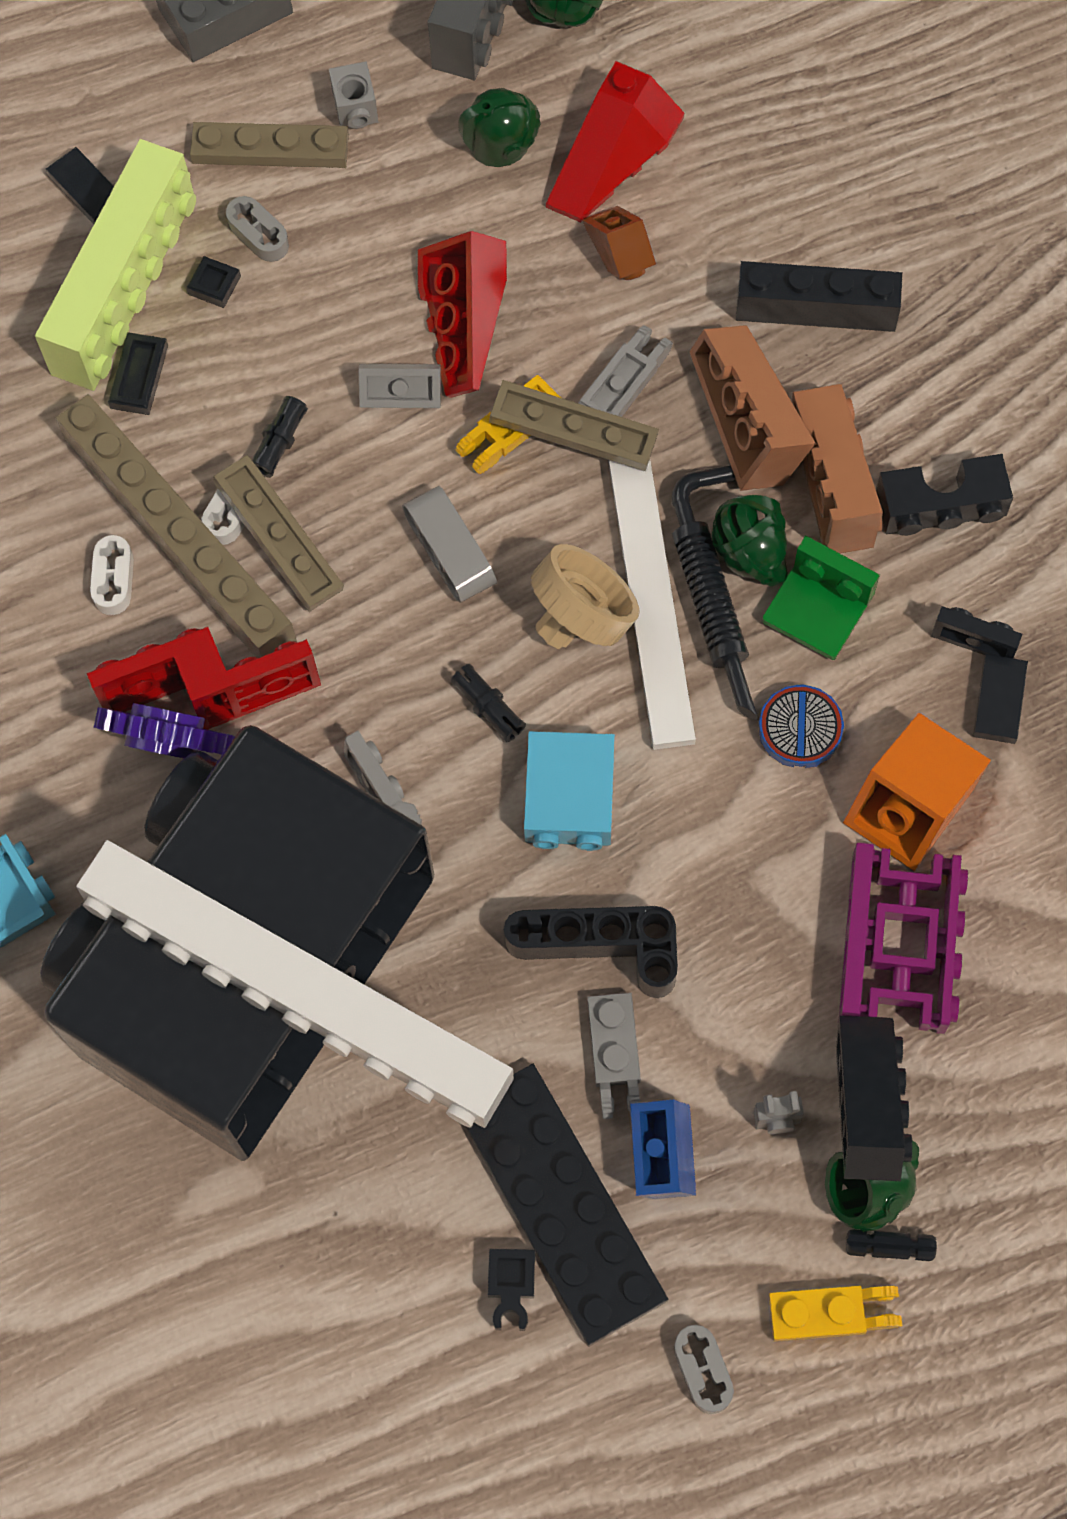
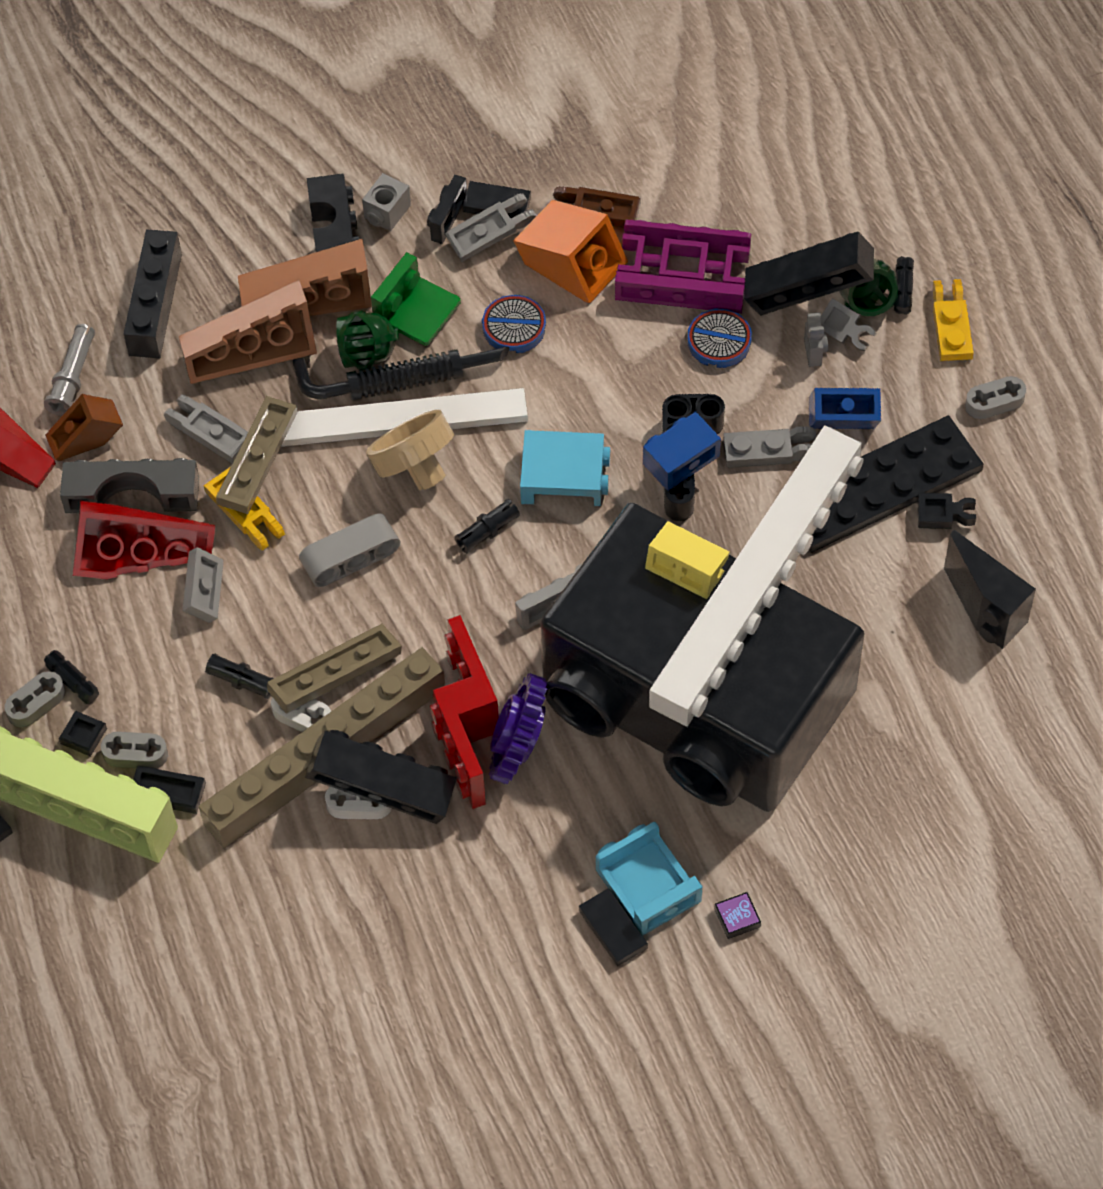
camera: 90 degrees left, 10 degrees down
(115, 581) = (381, 777): none -> black brick
(179, 334) = (134, 750): none -> light grey beam
(285, 262) = (71, 676): none -> black axle
(318, 893) = (686, 559): none -> light yellow hinge
(359, 1335) = (989, 591): none -> black slope
(539, 337) = (170, 481): none -> dark grey arch
(572, 923) = (681, 450): none -> blue brick
(688, 217) = (67, 381): none -> light grey pin
(790, 990) = (719, 338): none -> tile
(811, 1155) = (841, 322): none -> light grey plate
(946, 684) = (488, 227): none -> light grey hinge
(984, 574) = (386, 202): none -> light grey brick
(996, 829) = (616, 205): none -> reddish brown hinge

